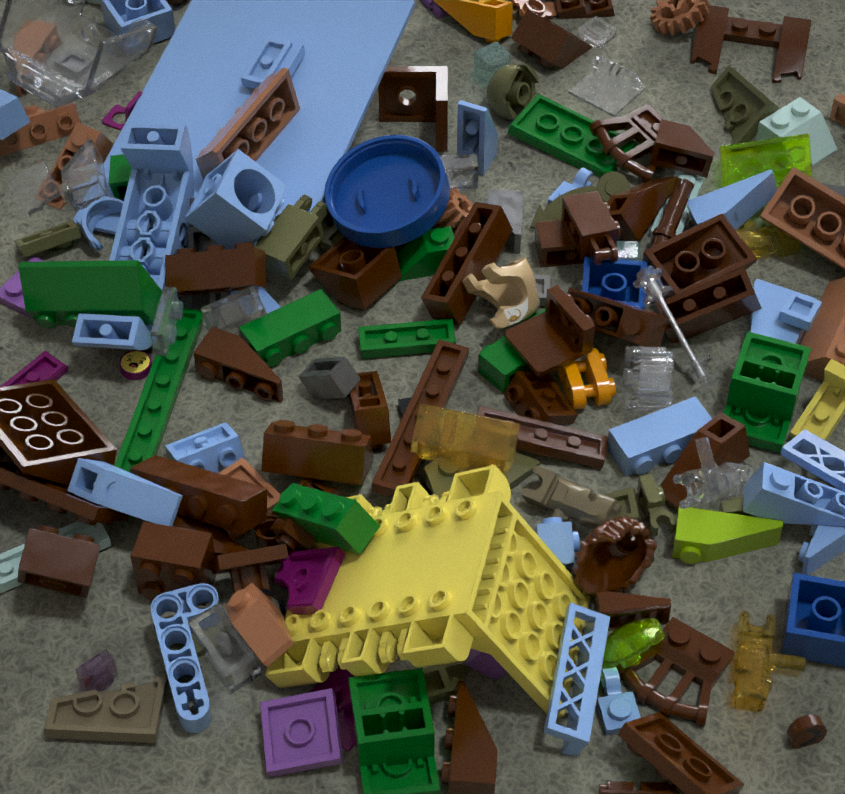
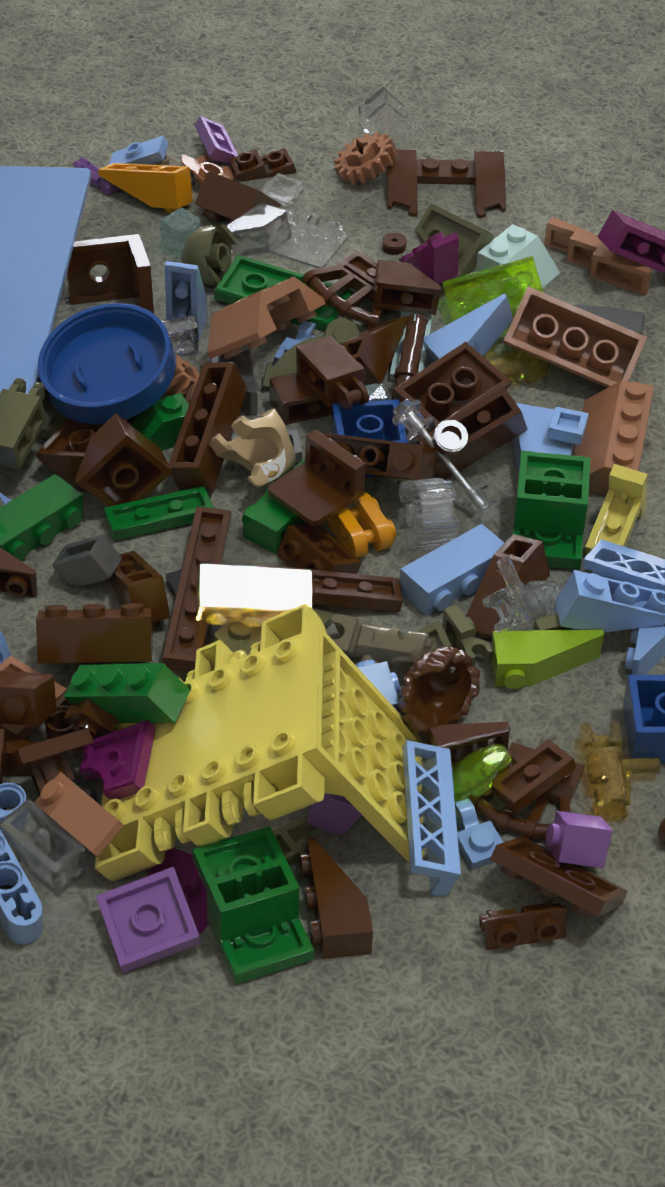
camera: 15 degrees left, 5 degrees down
(379, 289) = (121, 464): none -> reddish brown slope
(529, 161) = (259, 315): none -> nougat slope
(563, 72) = (260, 230): none -> clear slope
(680, 657) = (532, 775): none -> reddish brown plate
(683, 308) = (450, 438): none -> tile
(687, 99) = (394, 243): none -> reddish brown piece
(708, 726) = (579, 839): none -> medium lavender brick
(716, 124) = (436, 257): none -> magenta slope

